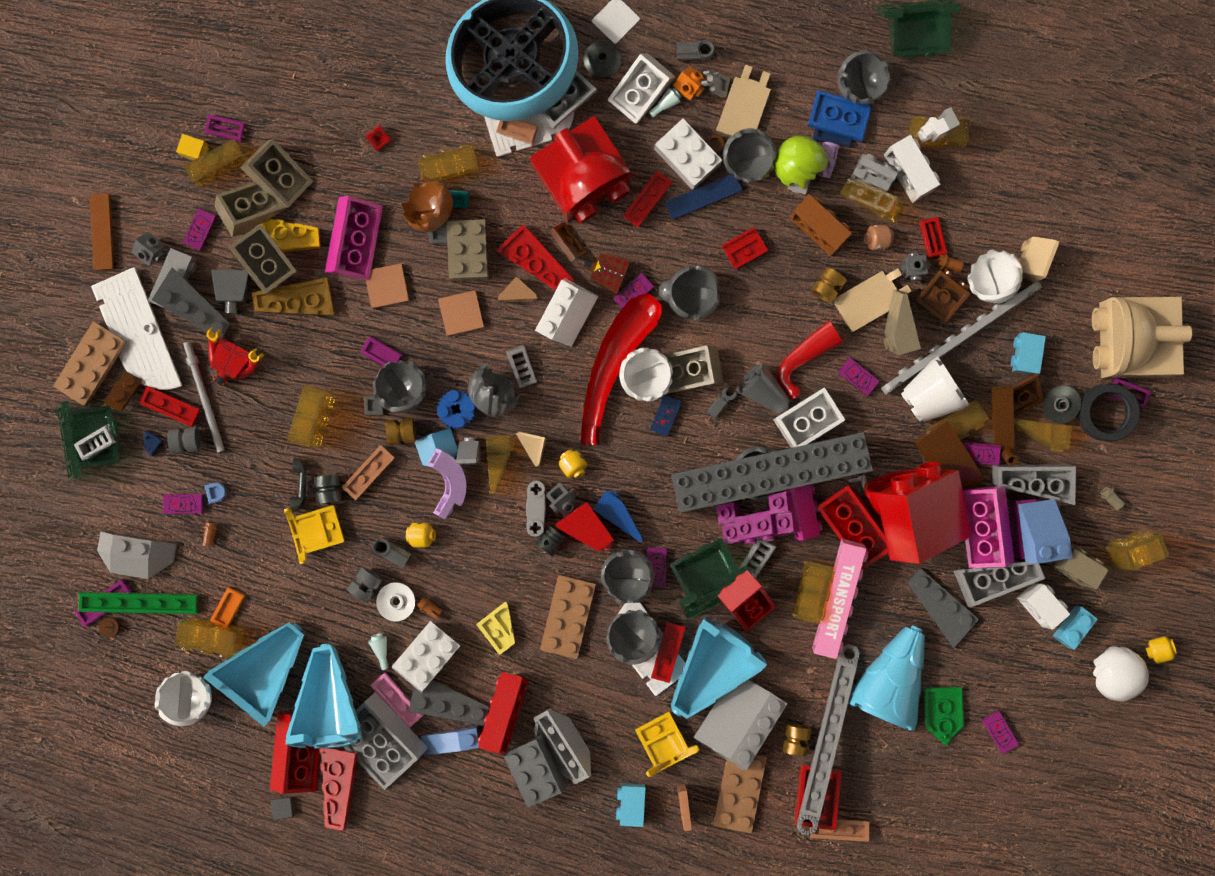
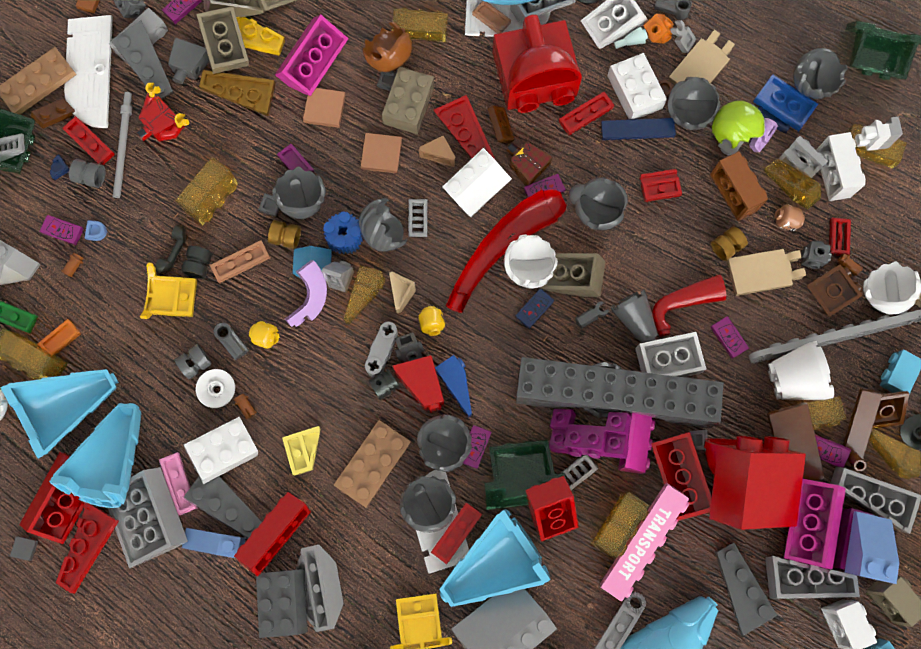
camera: 20 degrees right, 10 degrees down
(379, 646) = (182, 426): light aqua cone -> none
(460, 198) = (418, 56): teal slope -> none
(900, 326) = (788, 300): dark tan slope -> none

